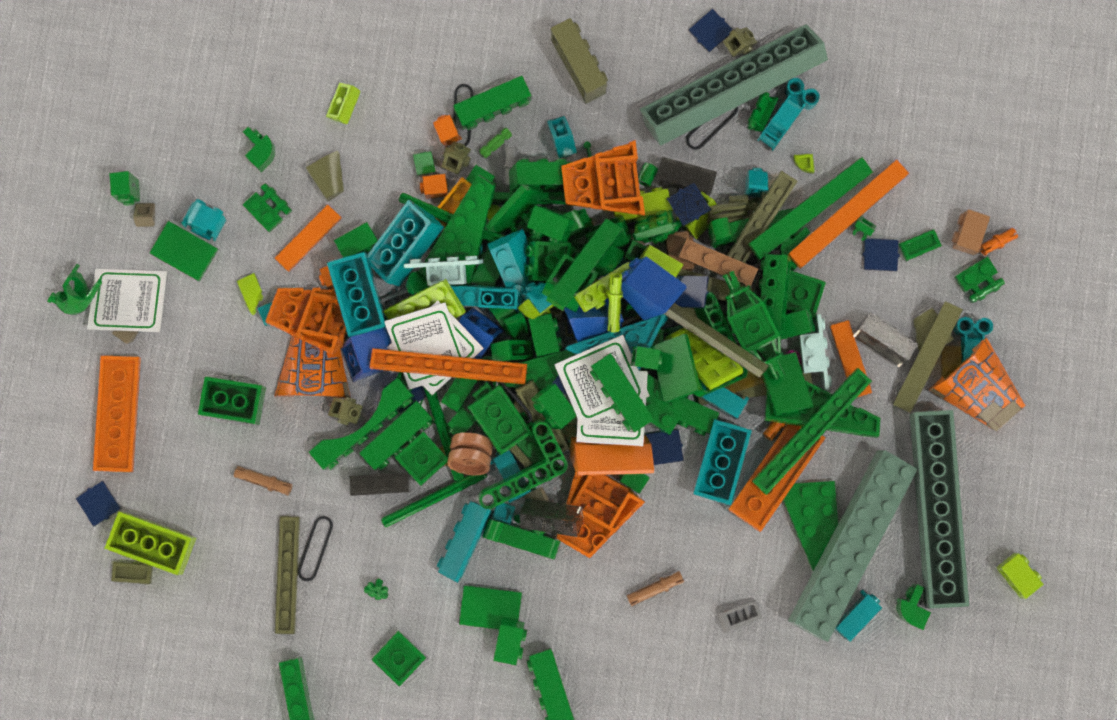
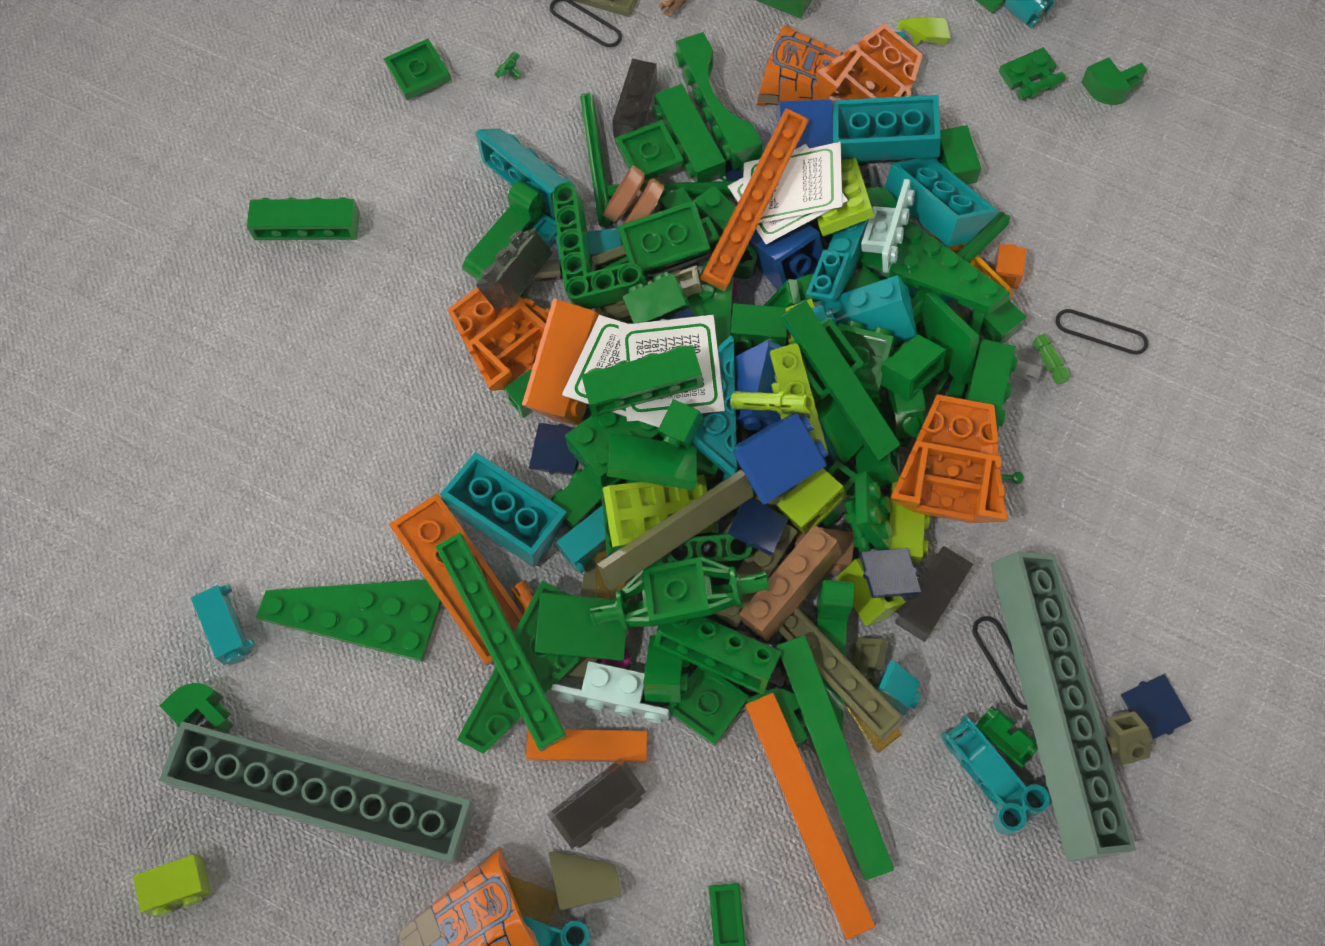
camera: 110 degrees right, 15 degrees down
(308, 238) = (979, 109): orange tile -> none
(328, 175) = (1057, 148): olive slope -> none
(343, 103) = (1153, 194): lime slope -> none
(345, 410) = (741, 86): olive brick -> none
(424, 163) = (1045, 264): green slope -> none
(447, 130) = (1084, 300): orange brick -> none
(456, 157) = (1042, 298): olive brick -> none
(488, 606) = (434, 183): green tile -> none
(492, 103) = (1110, 368): green brick -> none
(509, 641) = (382, 185): green brick -> none
(513, 351) = (751, 280): green brick -> none
(562, 137) = (1037, 442): teal slope -> none
(578, 60) = (1149, 492): olive brick -> none
(647, 174) = (952, 539): green piece -> none
(659, 586) = (374, 385): medium nougat pin -> none
(722, 616) = (284, 452): light grey slope -> none
(723, 208) = (858, 627): olive tile -> none
(804, 162) = (909, 780): lime tile -> none
(852, 545) = (320, 648): sand green brick -> none
(865, 226) = (781, 835): green tile -> none
(881, 255) = (730, 849): dark blue piece -> none
(927, 357) = (549, 861): olive tile -> none

